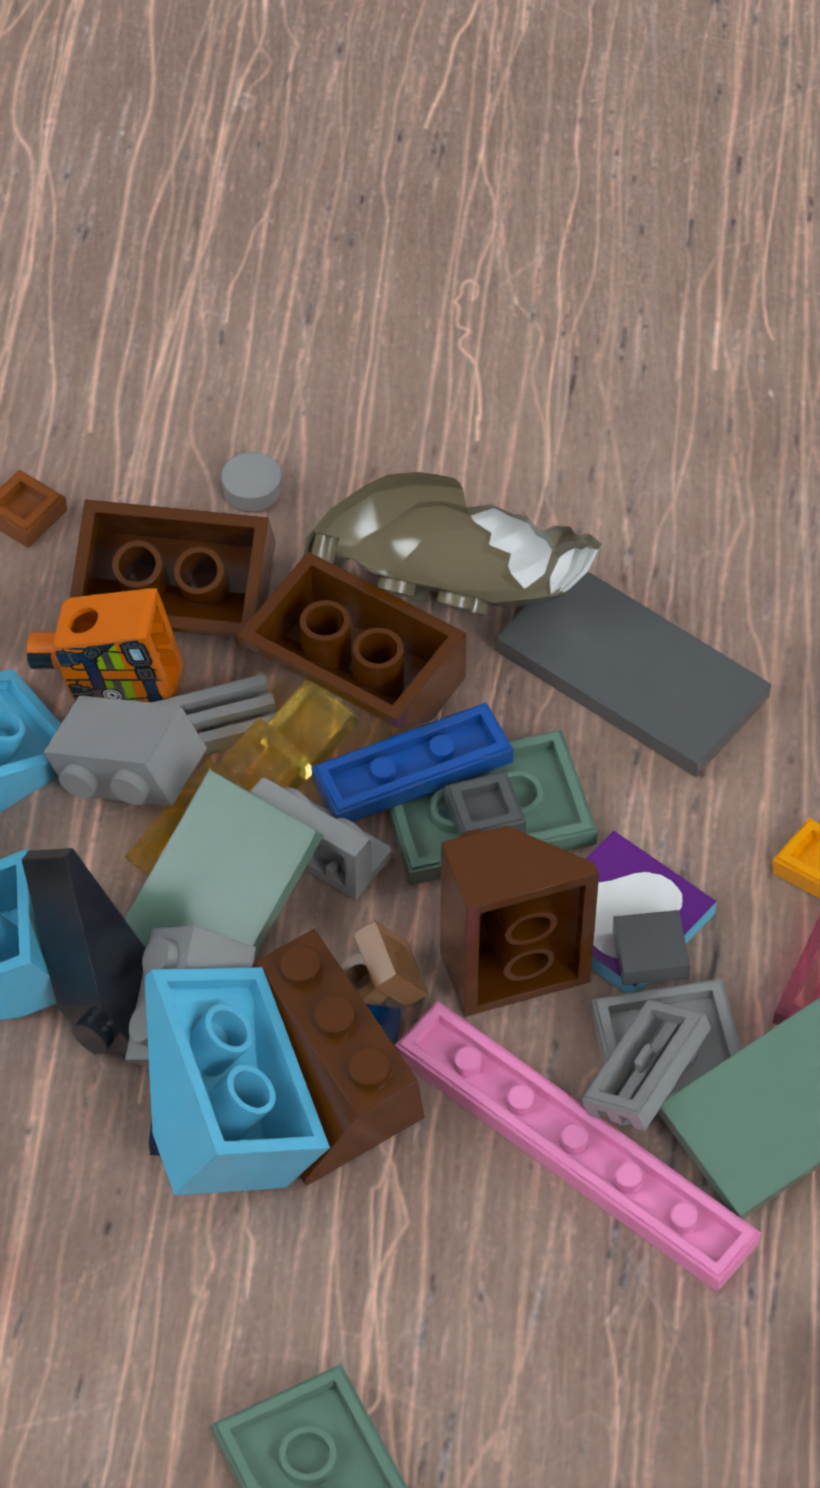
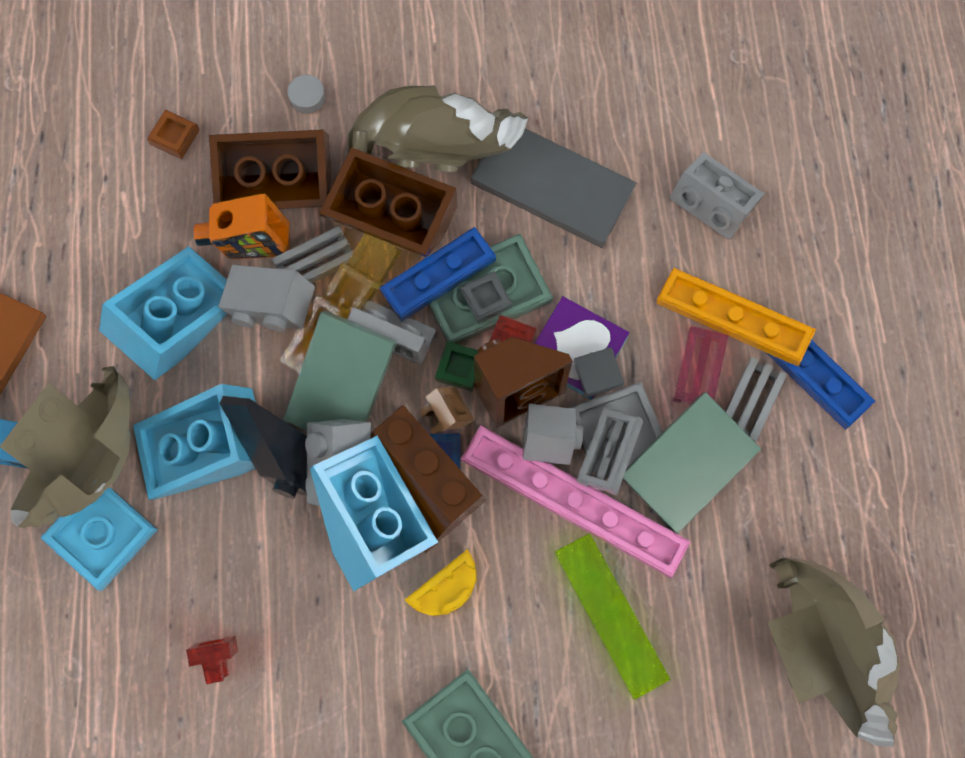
camera: 10 degrees left, 20 degrees up
(328, 1242) = (447, 589): none -> yellow tile
(413, 908) = (457, 366): none -> dark green plate
(552, 1025) = (551, 434): none -> light grey brick
(604, 1331) = (612, 616): none -> clear neon green tile

